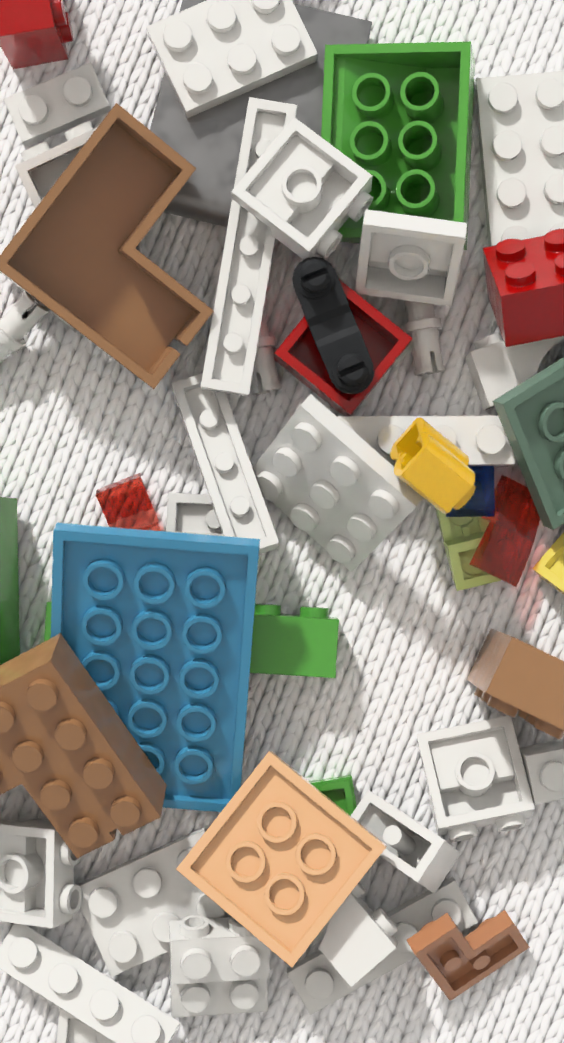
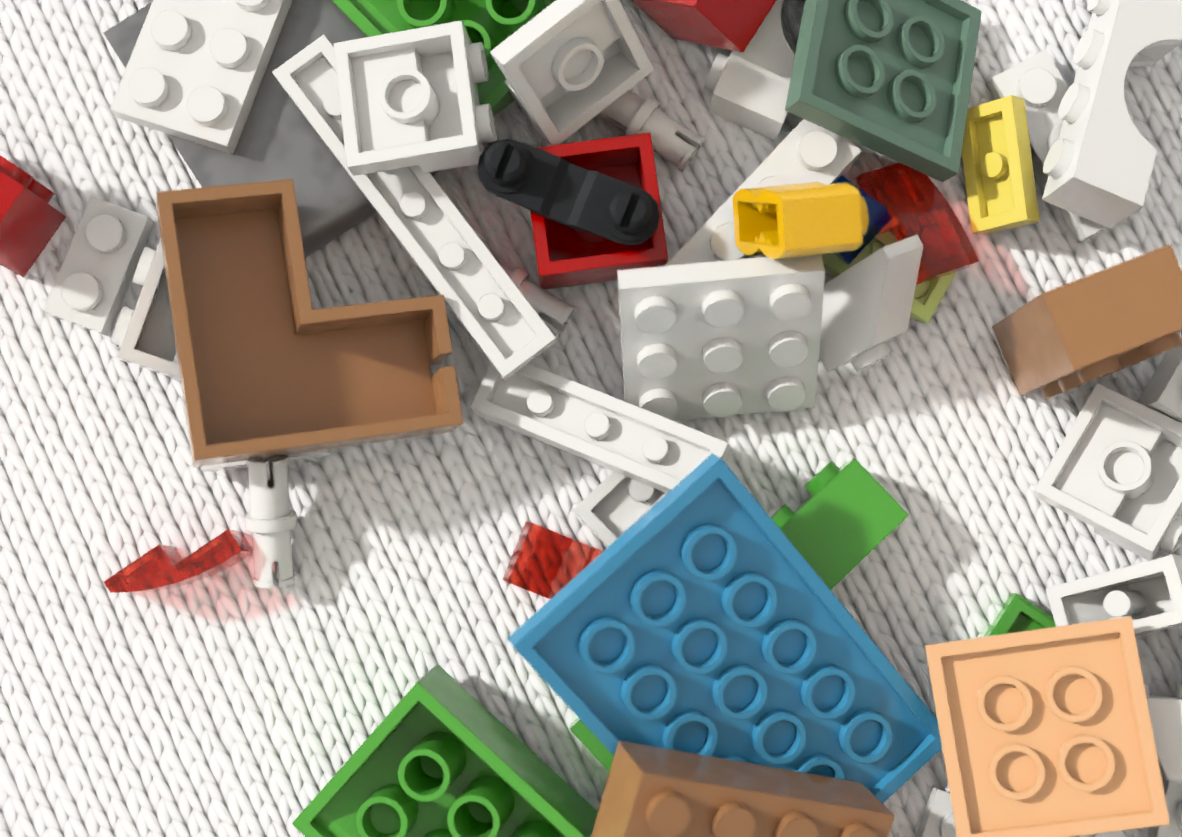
camera: 50 degrees left, 5 degrees down
(429, 548) = (869, 306): none -> white slope

